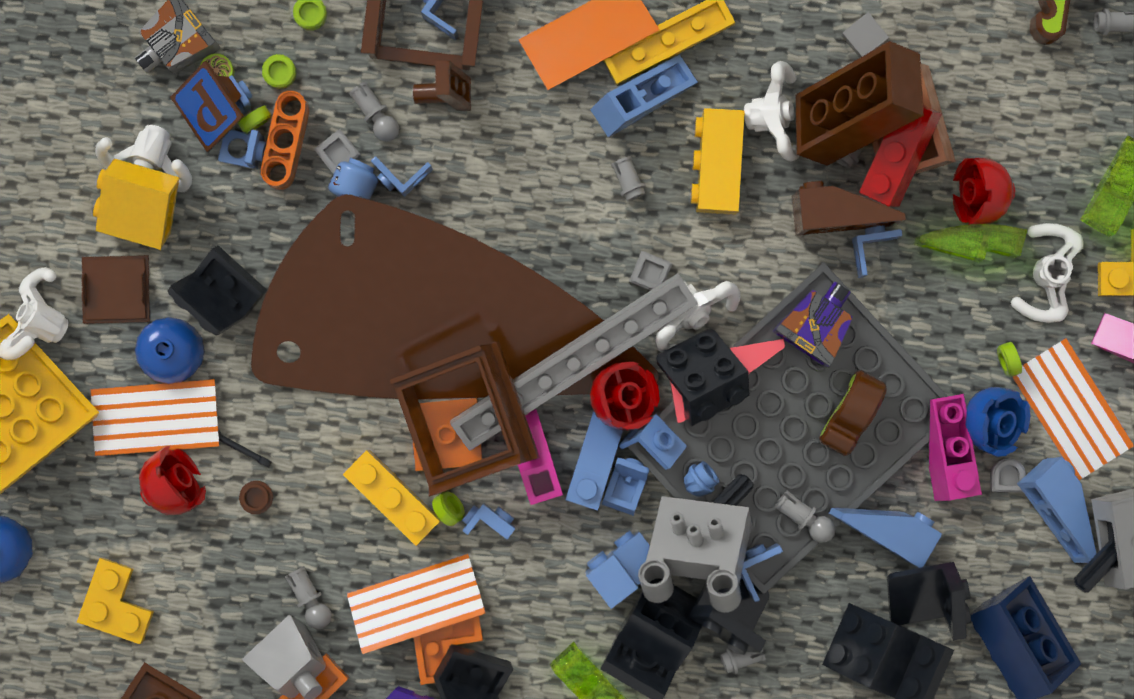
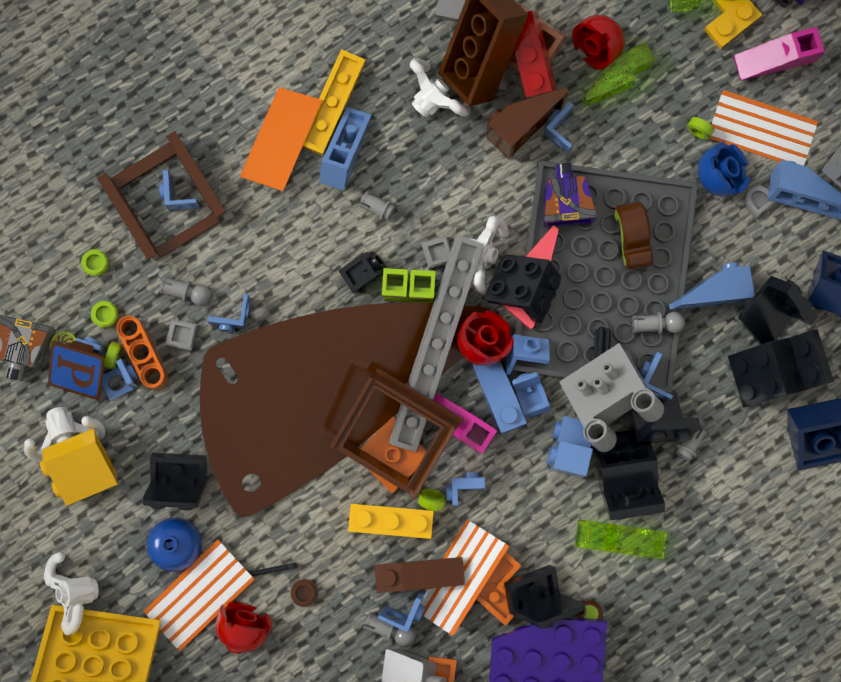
camera: 35 degrees left, 5 degrees down
(115, 289) = (108, 534): reddish brown piece -> none
(331, 602) = (404, 622): none -> medium blue bracket
(353, 179) = (202, 340): medium blue head -> none
(377, 570) = (419, 574): none -> reddish brown slope
(451, 87) = (223, 237): reddish brown piece -> none
(562, 232) = (362, 270): none -> black bracket
(592, 284) = (407, 287): none -> lime hips
(700, 479) = (574, 352): medium blue plate -> none
(718, 161) = (424, 150): yellow brick -> none
(951, 451) = (712, 211): dark pink slope -> none
(1052, 273) = (682, 56): white piece -> none

